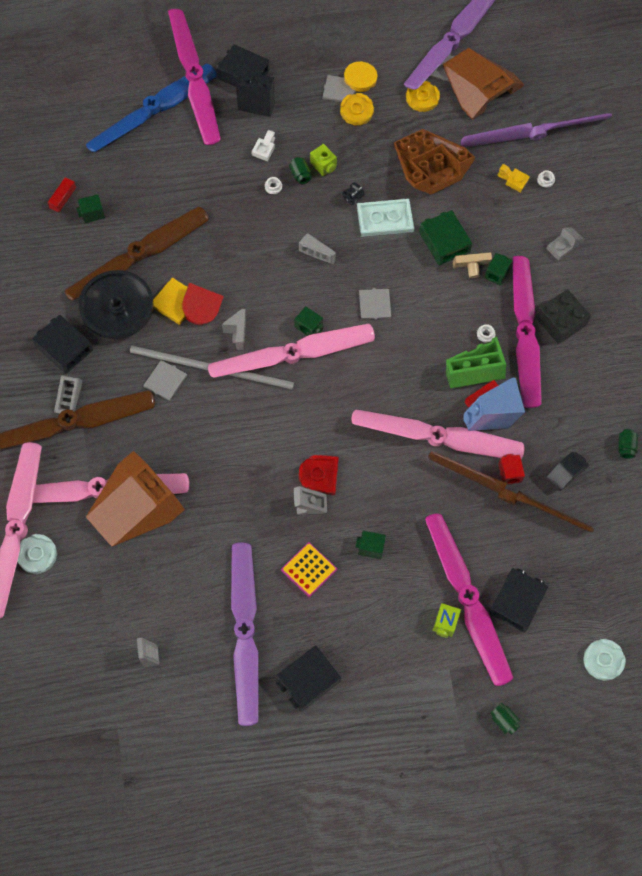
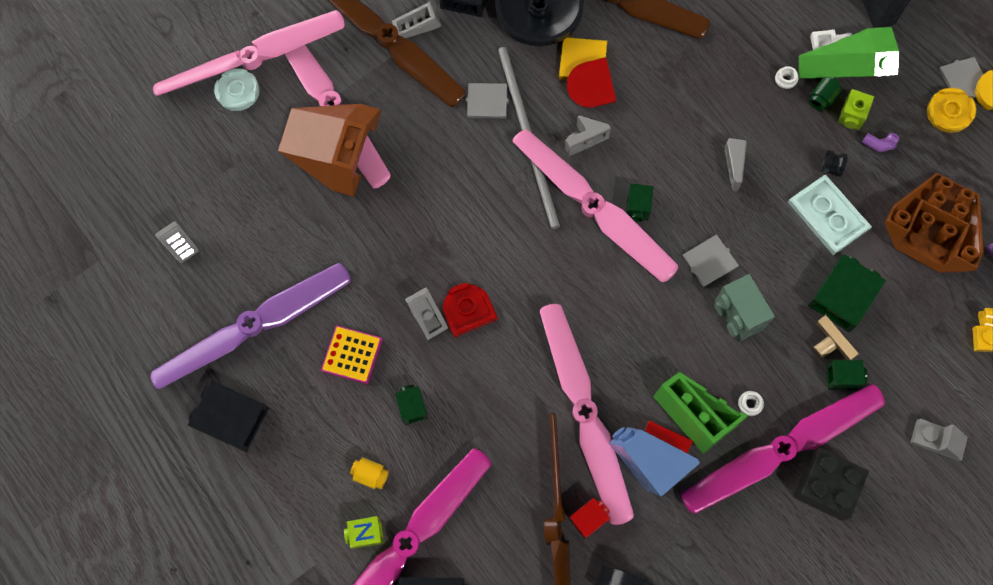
camera: 70 degrees right, 5 degrees up
(289, 133) = (862, 54): none -> bright green wedge
(355, 161) = (881, 145): none -> medium lavender arm
(405, 597) = (369, 473): none -> yellow brick
(423, 299) = (743, 308): none -> sand green brick

